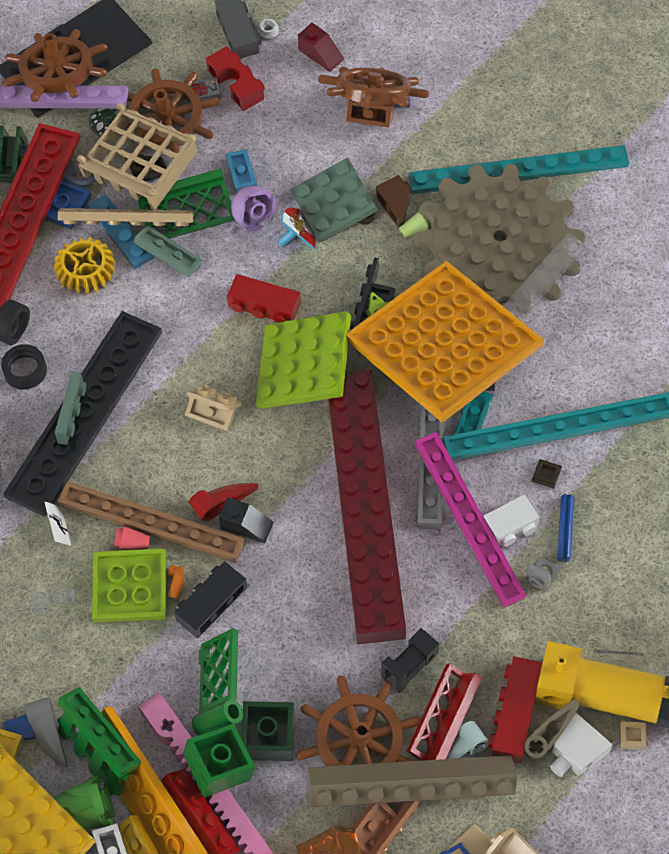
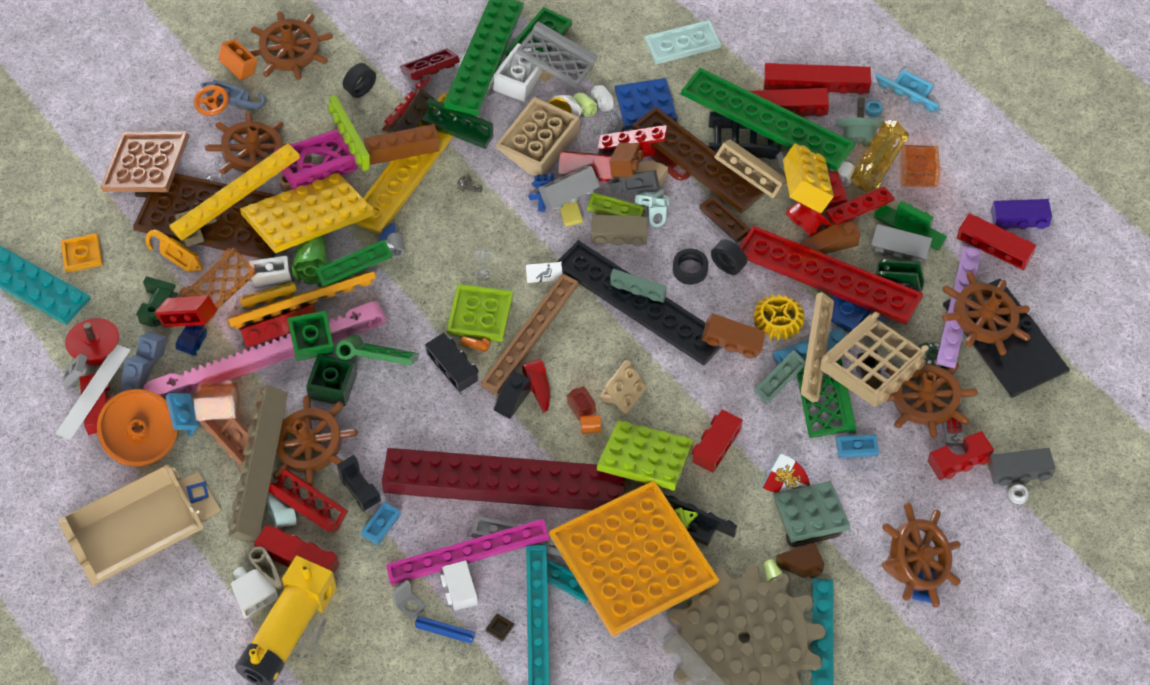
camera: 100 degrees right, 5 degrees down
(126, 299) = (733, 336): none -> dark orange brick
(131, 539) = (518, 317): coral cone -> none
(241, 445) = (581, 402): none -> clear red brick
(253, 203) = (812, 440): lavender cylinder -> none
(267, 430) = (590, 424): none -> orange beam
(319, 47) = (987, 530): dark red slope -> none
(451, 627) = (381, 523): none -> dark azure plate
(632, 735) = (246, 633): tan plate -> none

